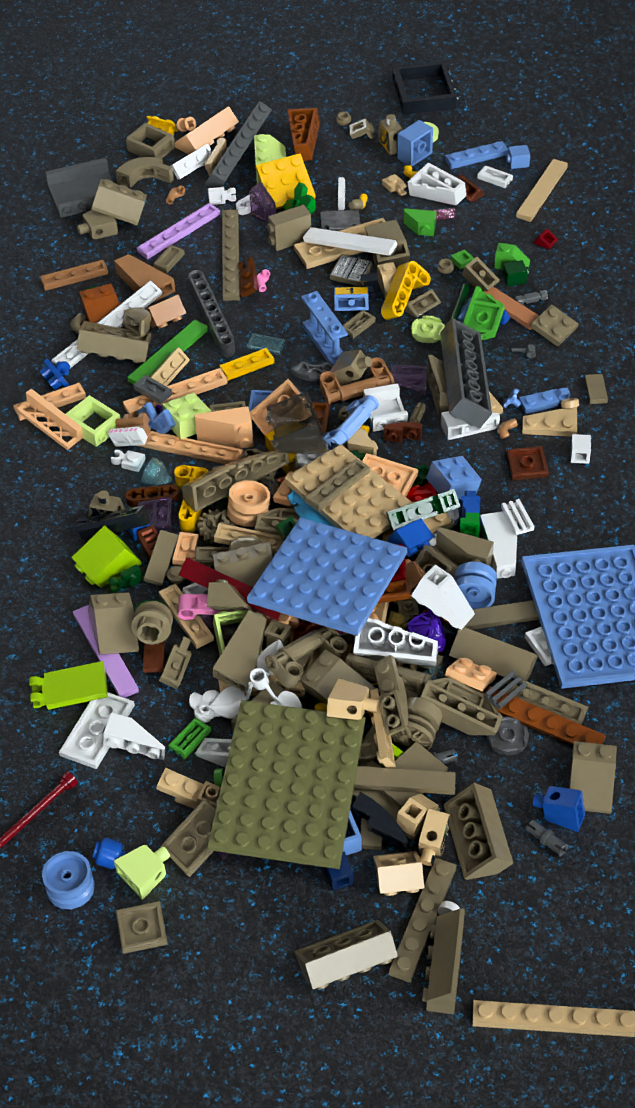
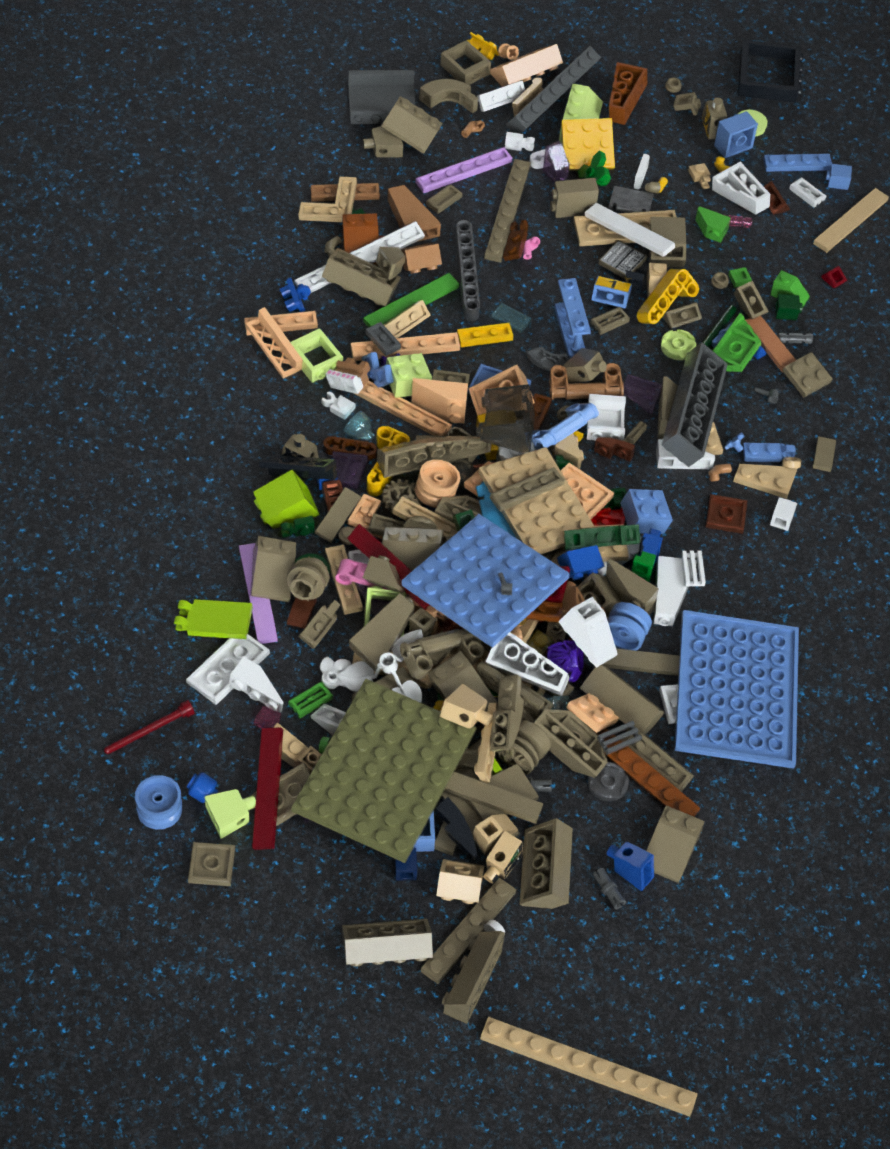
camera: 10 degrees right, 5 degrees up
(65, 294) = (332, 212): none -> tan plate
(152, 768) = (267, 718): none -> clear pink plate
(176, 835) = (267, 788): none -> dark red tile
(352, 576) = (506, 588): none -> dark grey hand

